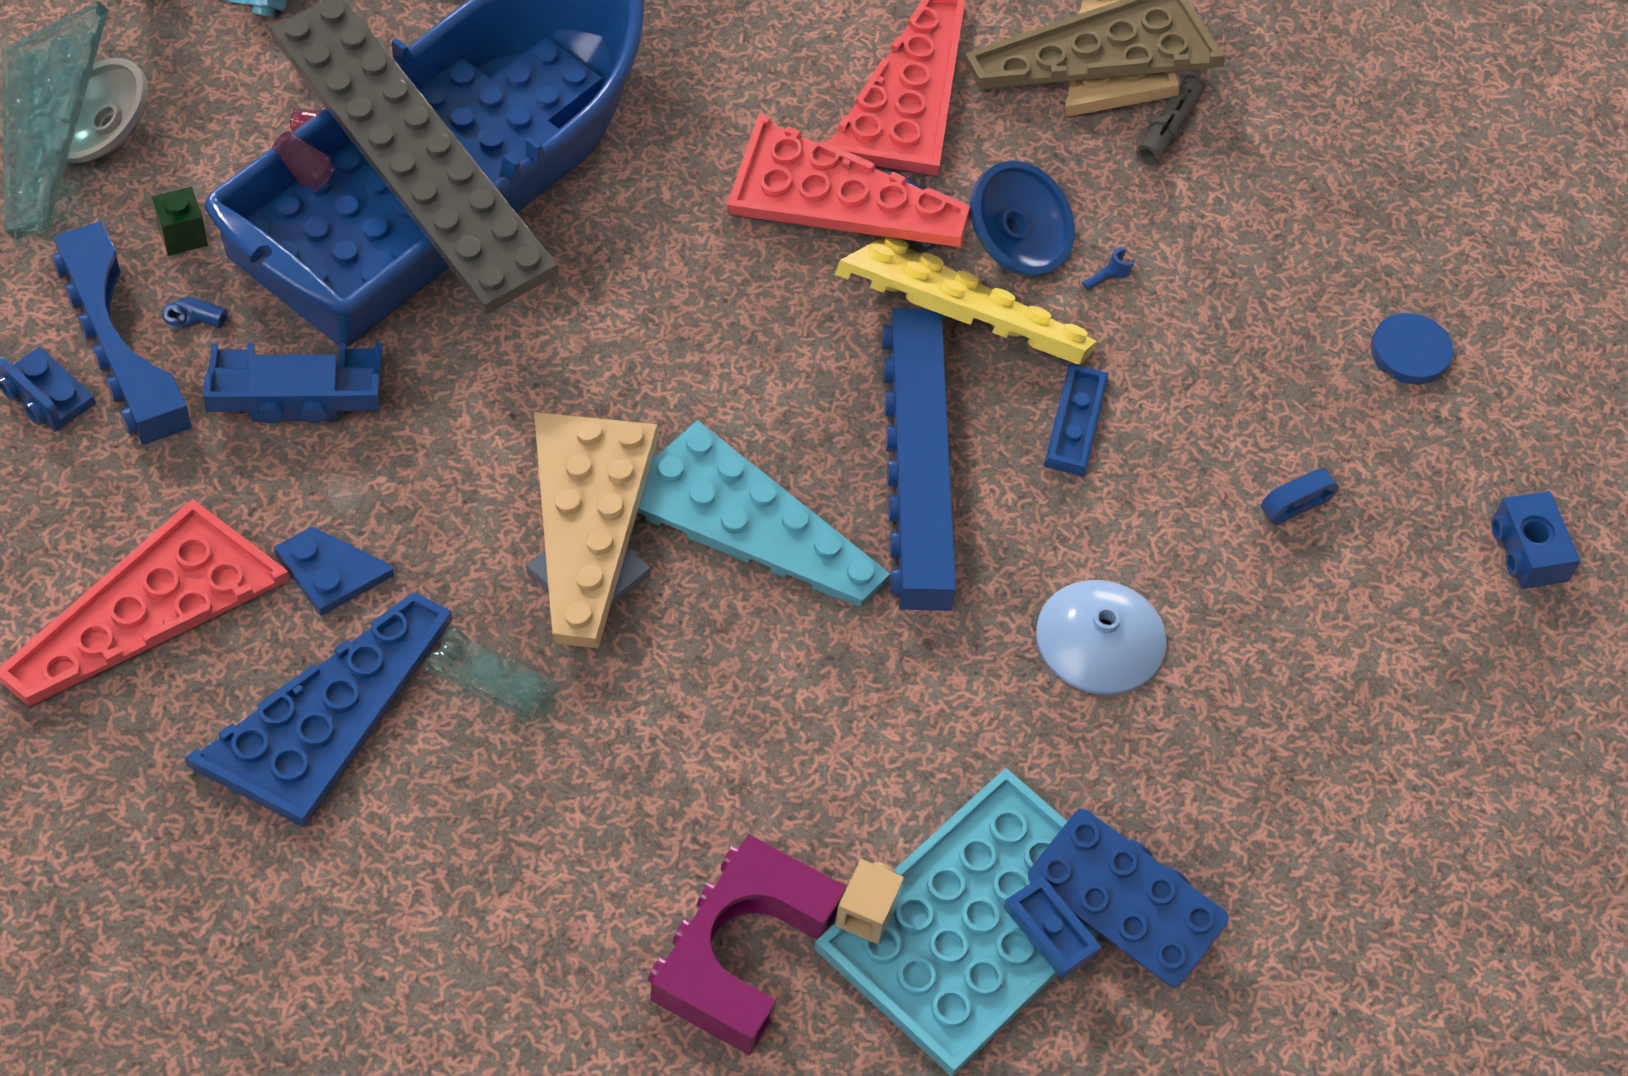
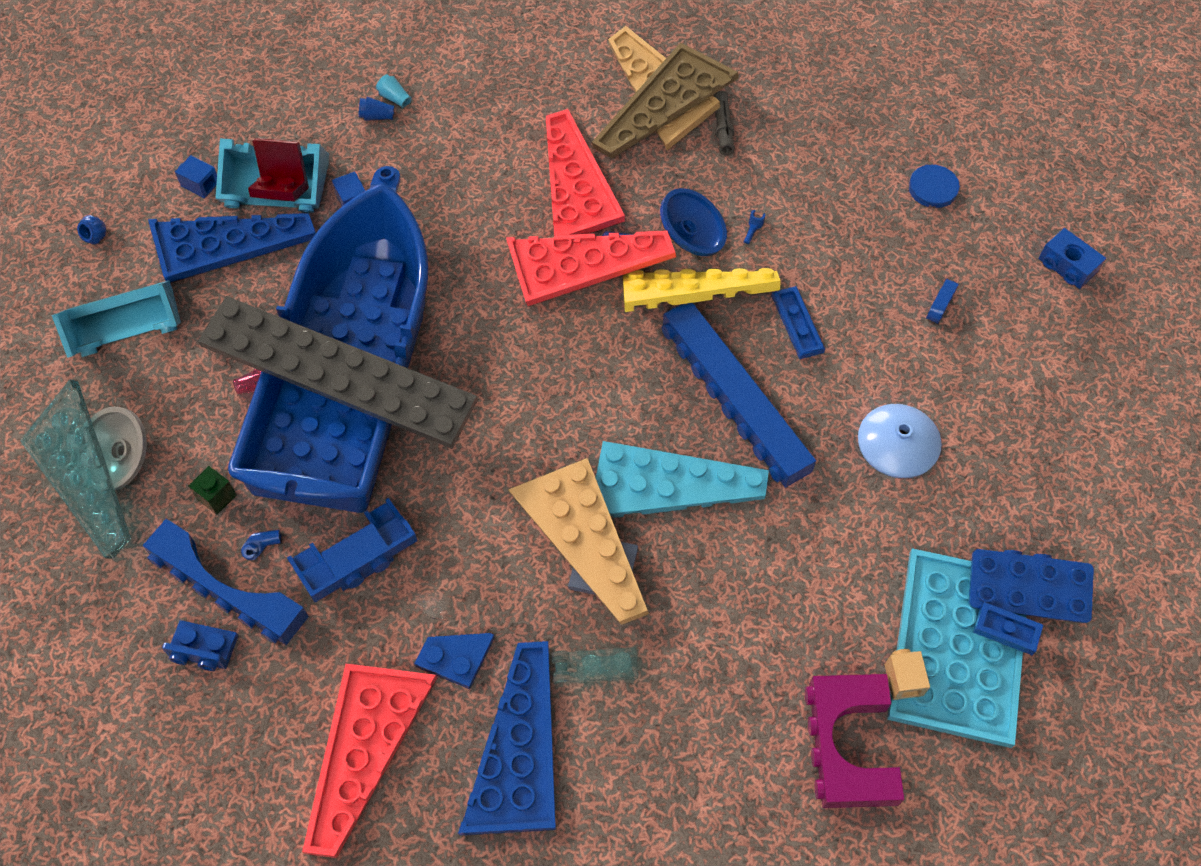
camera: 25 degrees left, 5 degrees up
(304, 161) = (274, 413): clear pink cone -> none

